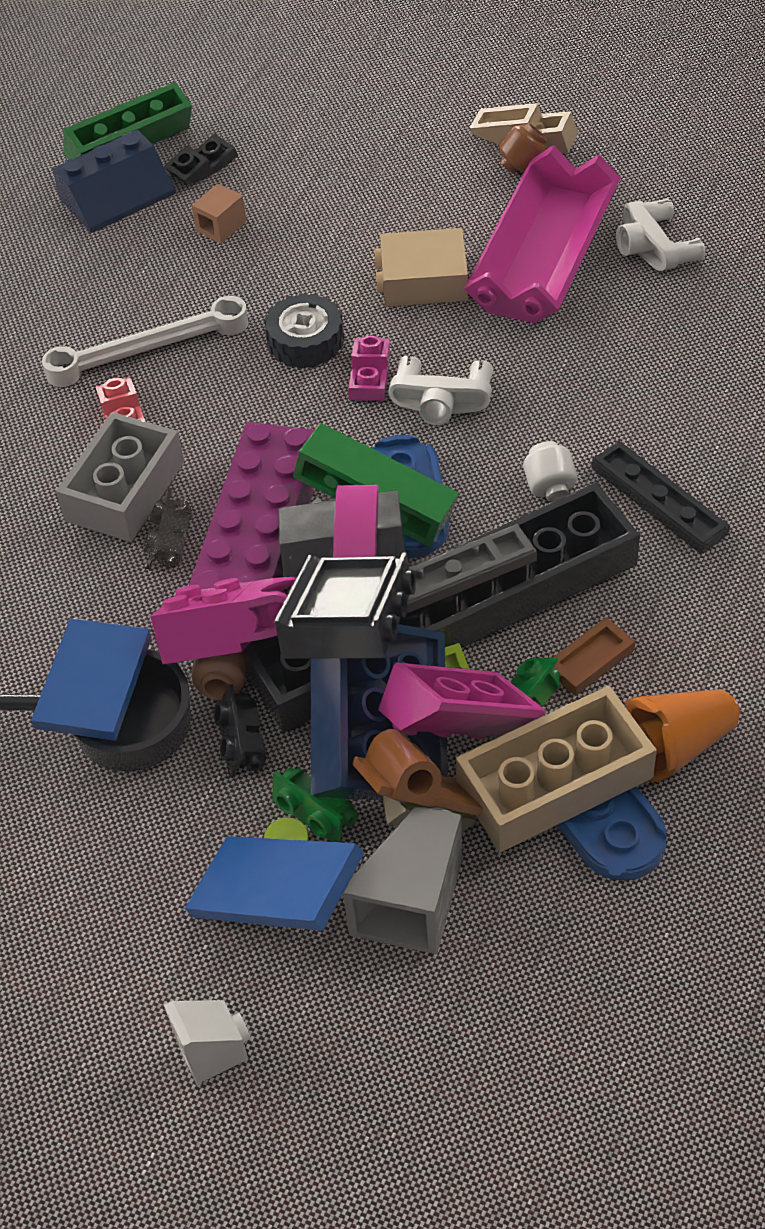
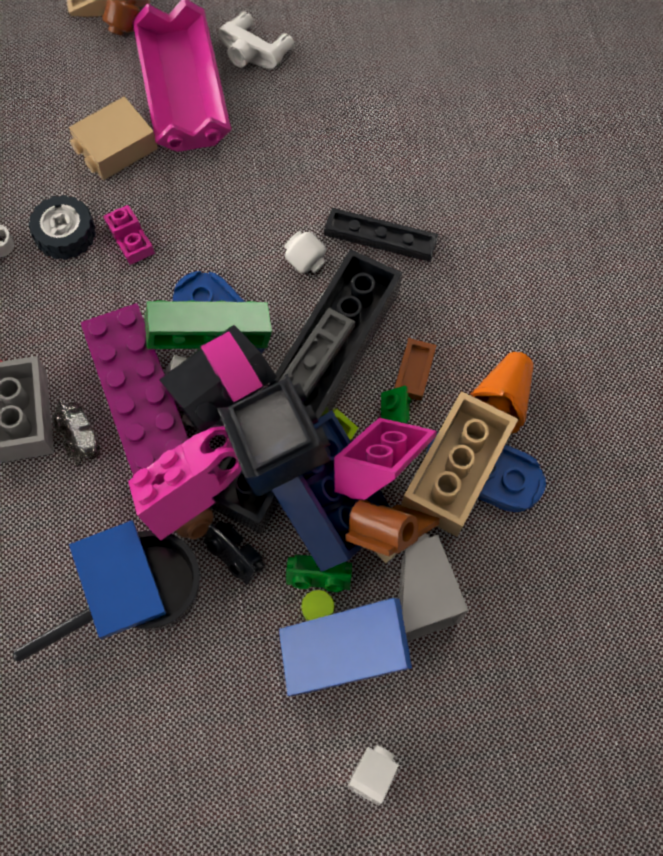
camera: 40 degrees left, 15 degrees up
(440, 395) = (191, 233): white connector -> none

